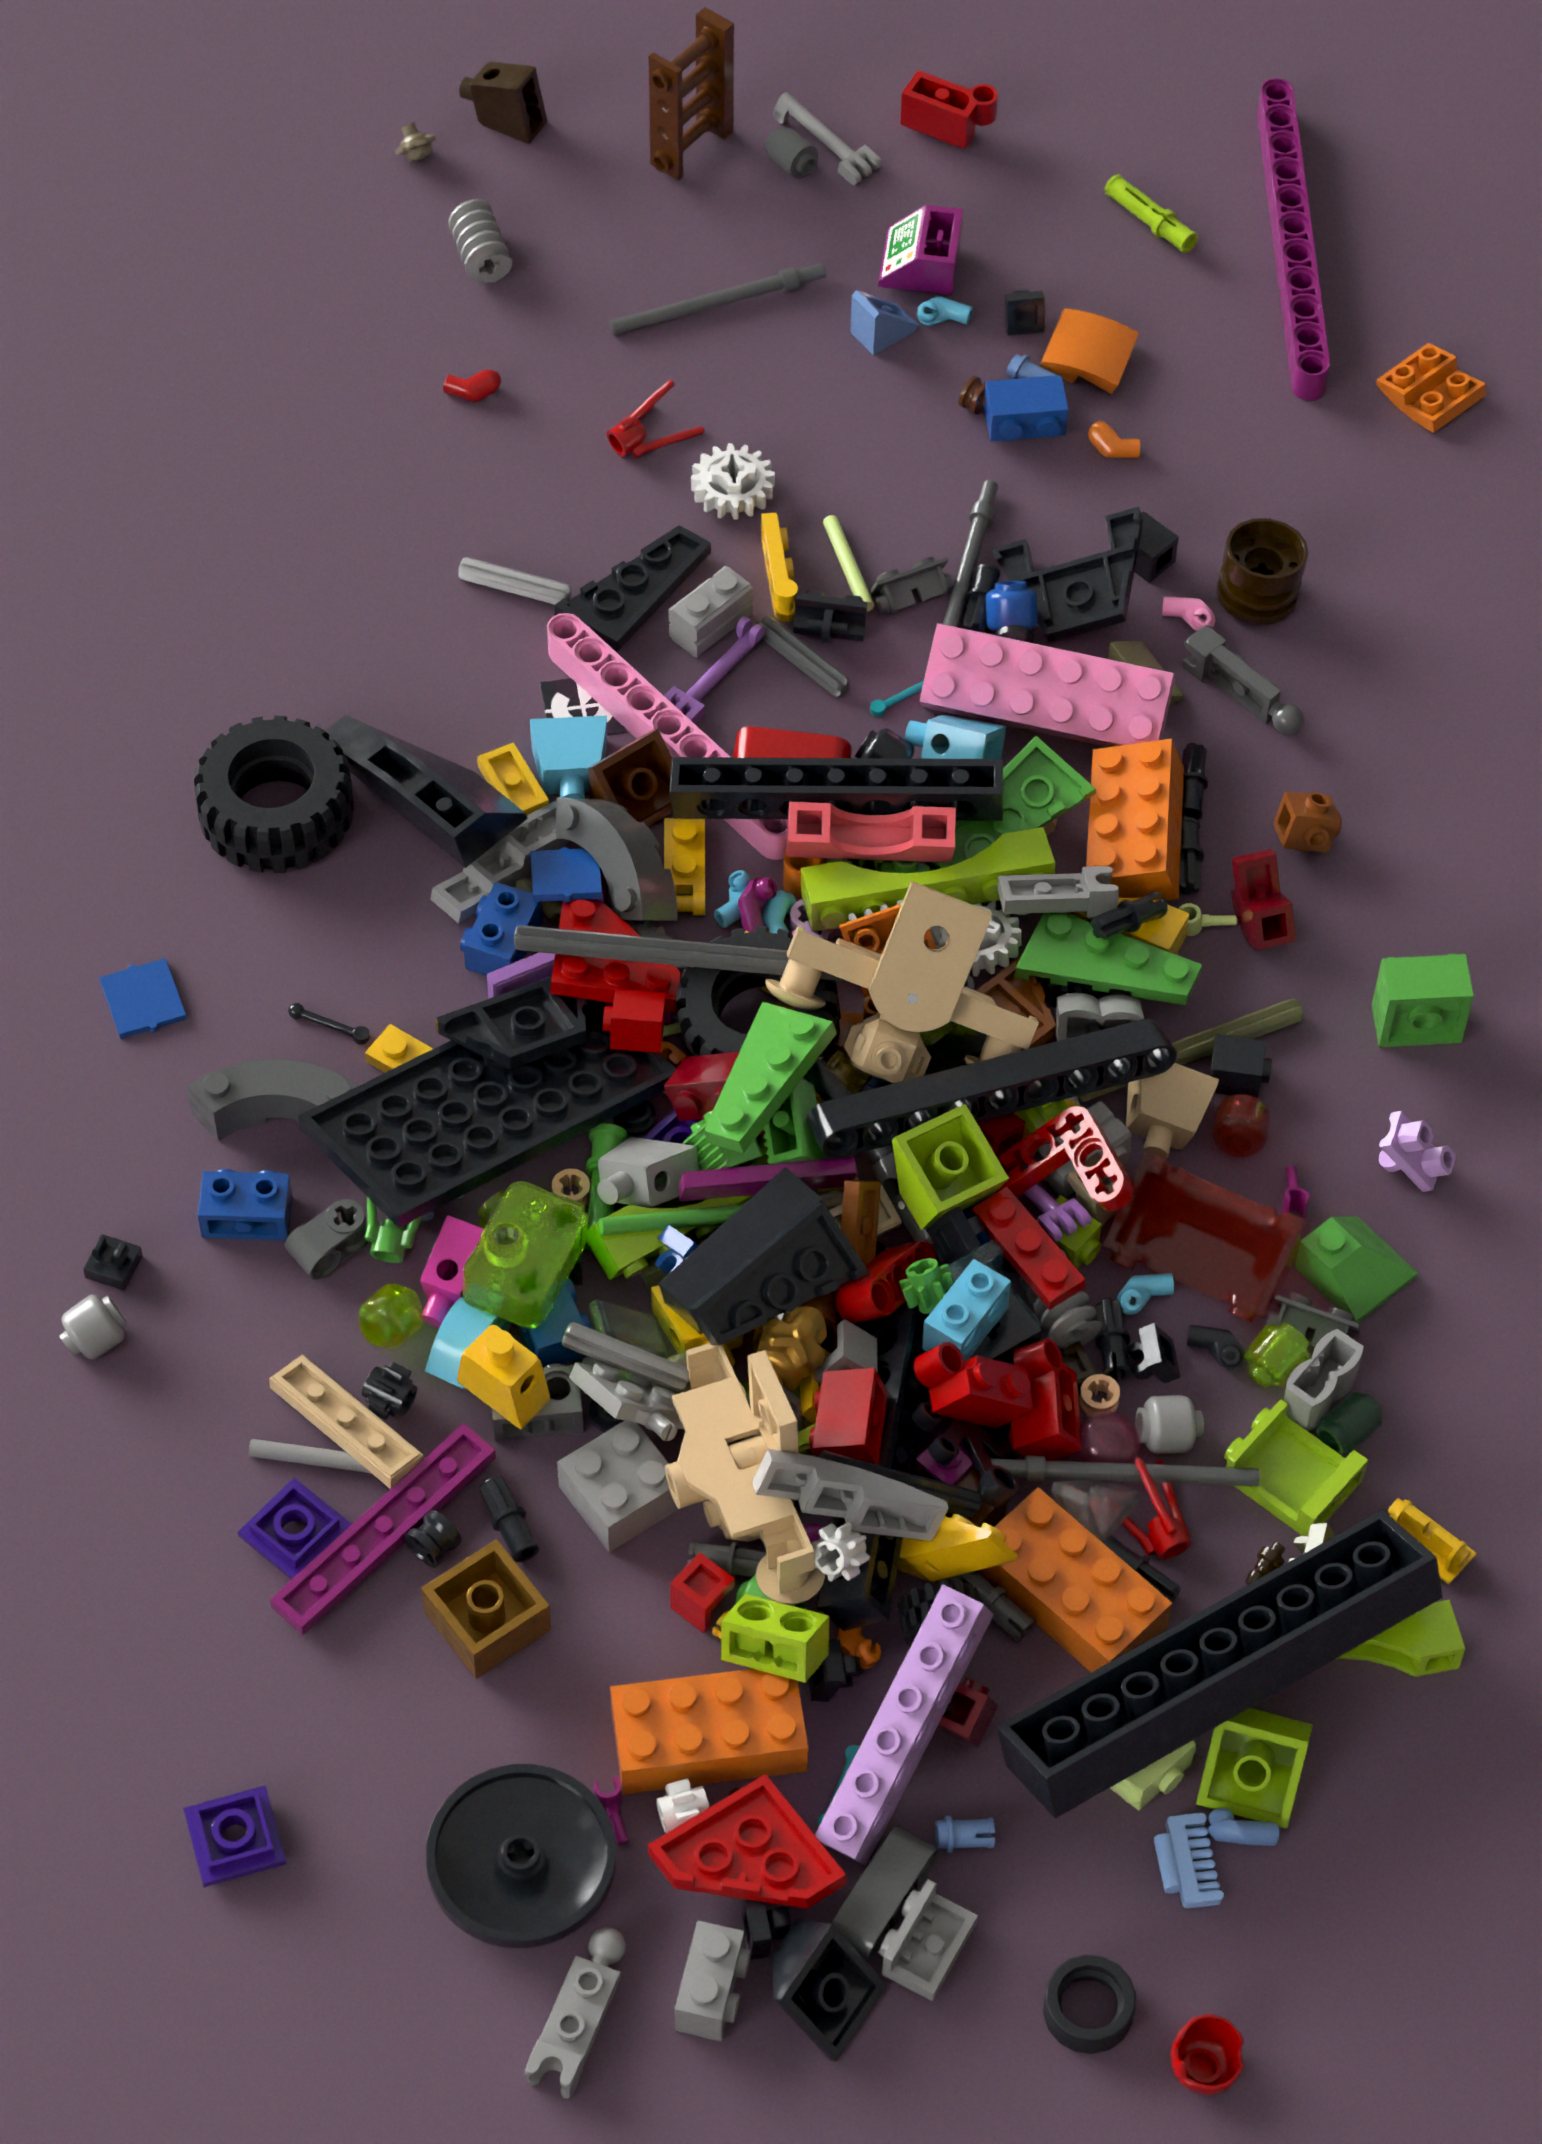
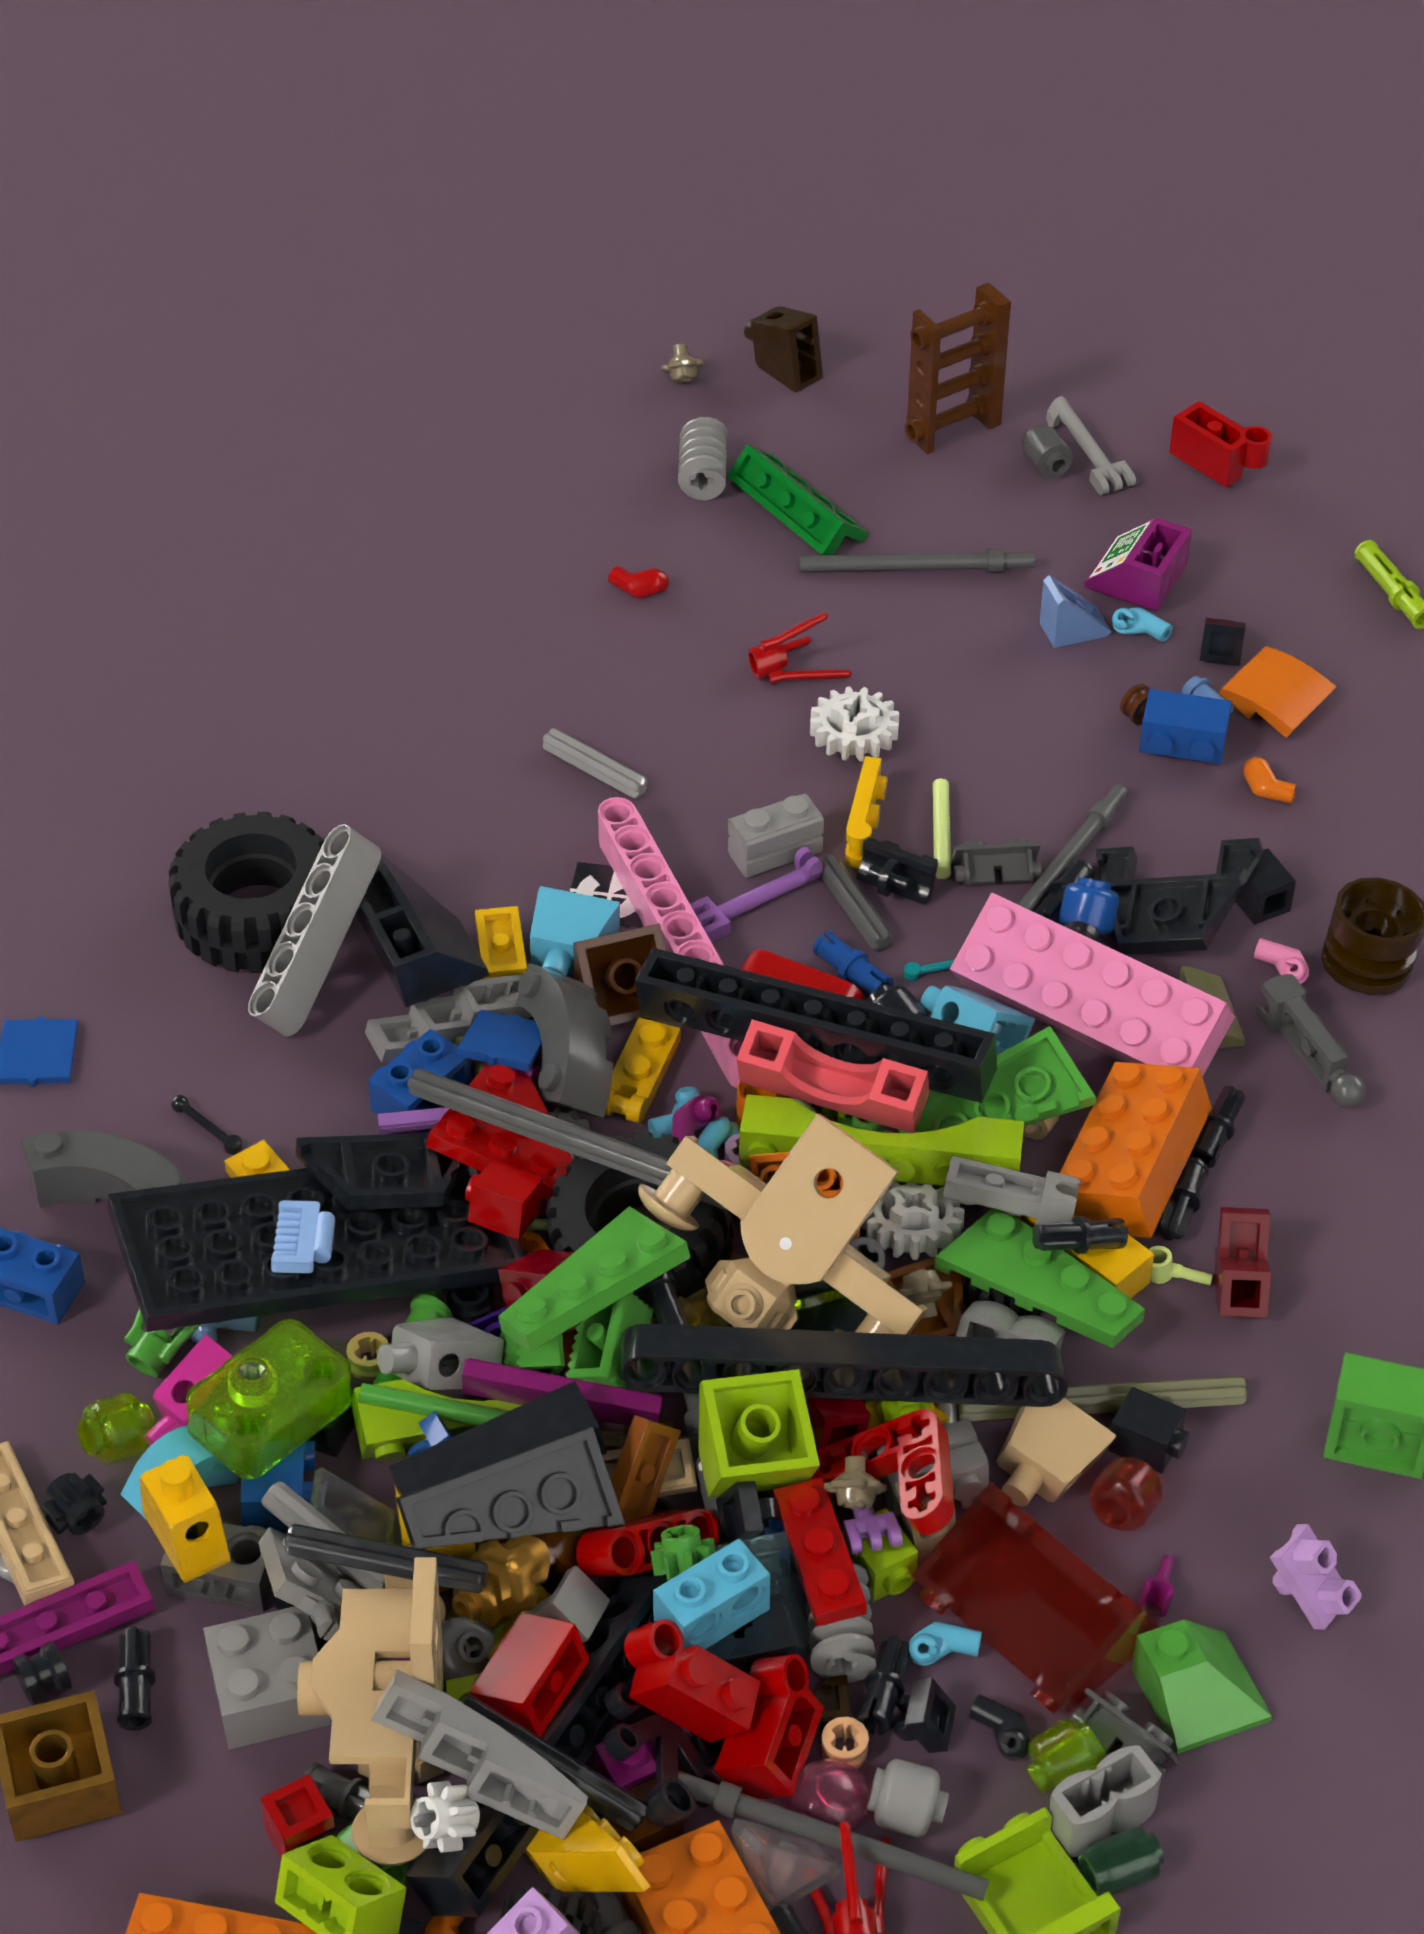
camera: 20 degrees right, 10 degrees down
(328, 1241) = (89, 1333): dark grey piece -> none
(356, 818) = (314, 930): none -> light grey beam
(485, 1105) = (302, 1237): none -> light blue piece
(581, 264) = (794, 501): none -> green fence
(637, 588) = (710, 798): black wing -> none
(693, 1360) = (382, 1557): none -> black axle
(827, 717) = (850, 963): none -> blue pin
(1016, 998) = (924, 1288): none -> dark tan plant
(1039, 1186) = (855, 1487): none -> dark tan plant
(1307, 821) = (1327, 1197): dark orange brick -> none

